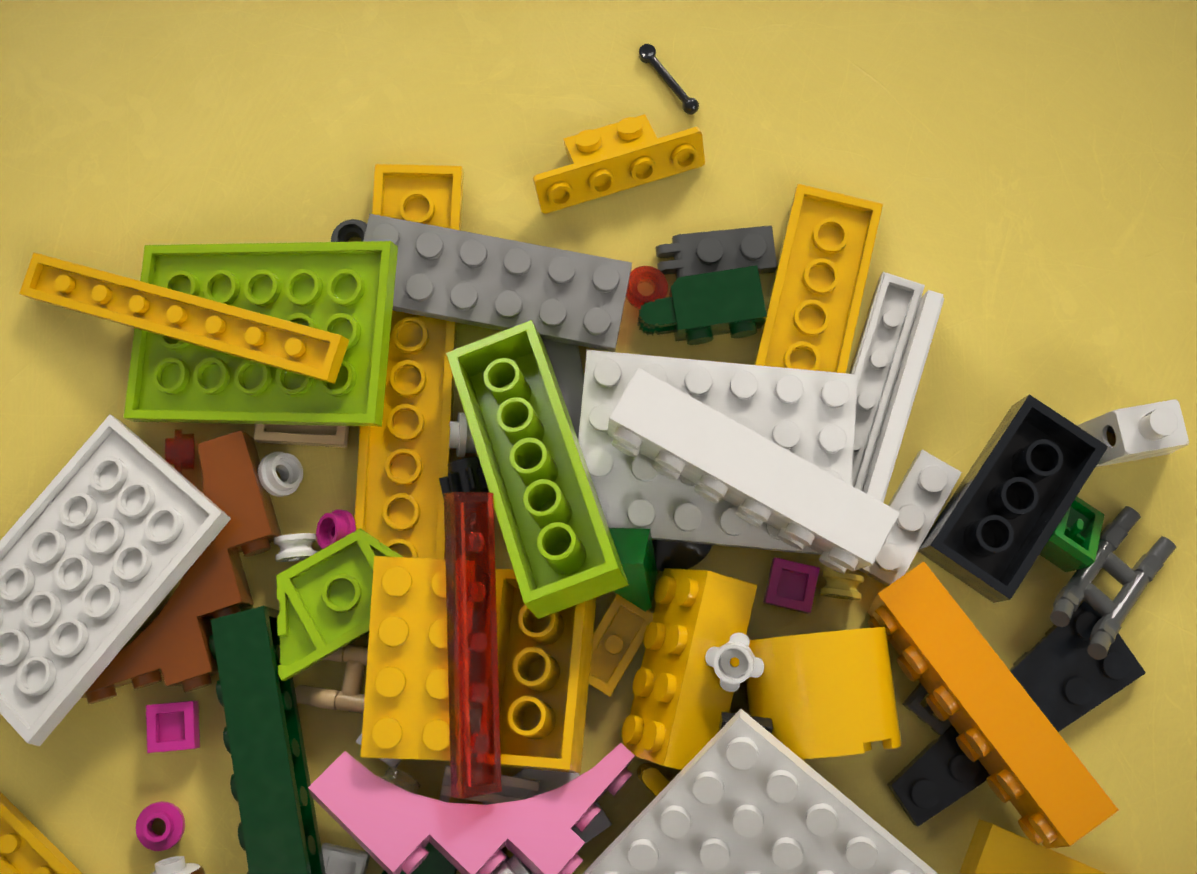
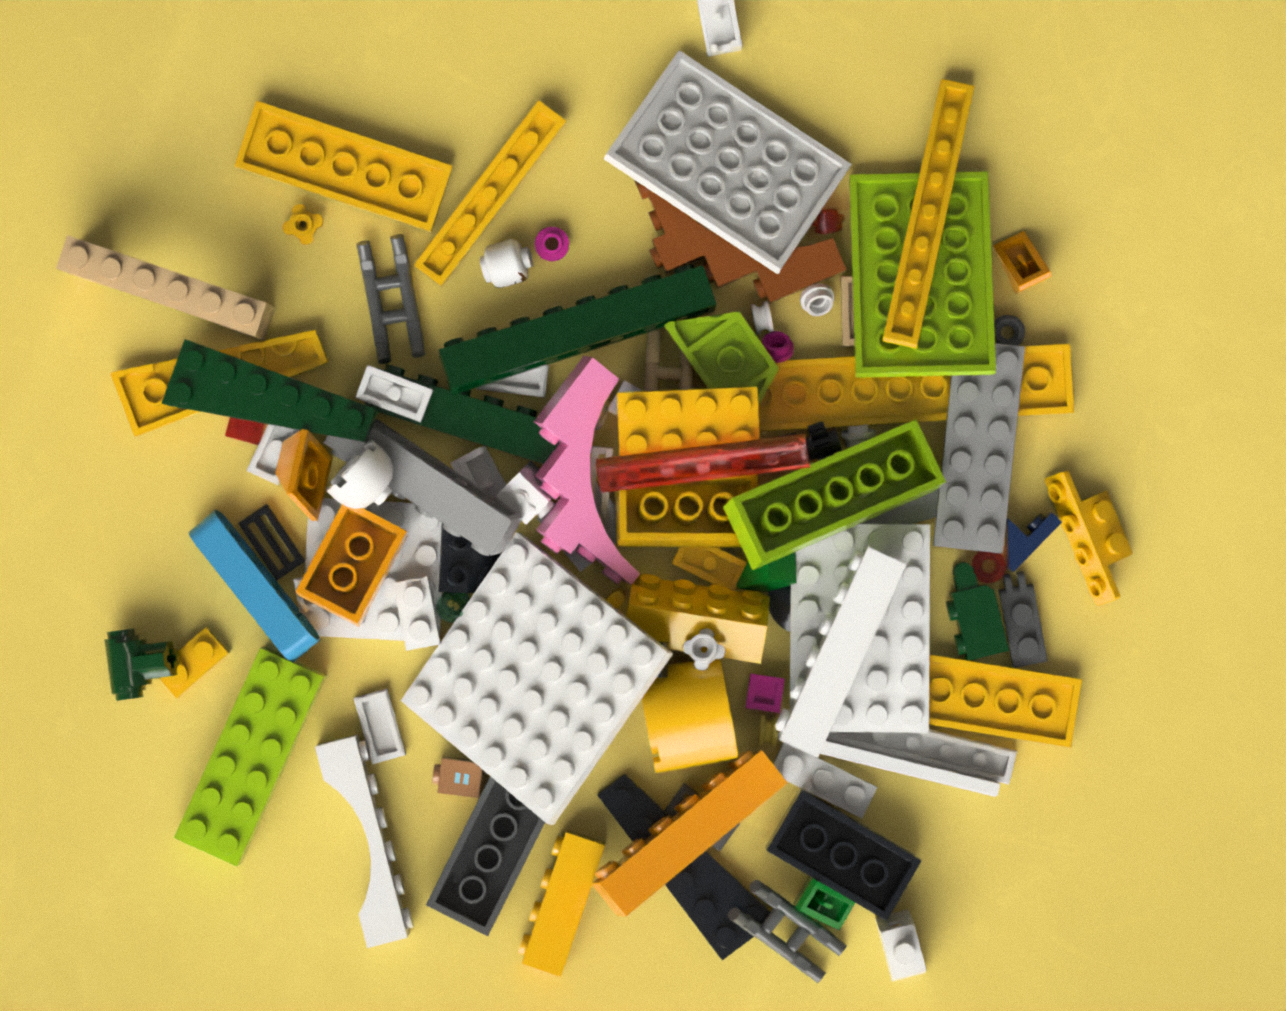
camera: 85 degrees right, 10 degrees up
(172, 726) = (623, 243): dark pink plate -> none
(269, 212) = (1021, 262): none -> light orange slope
(622, 238) = (1021, 546): none -> dark blue slope
(647, 54) = (1186, 553): black hinge -> none

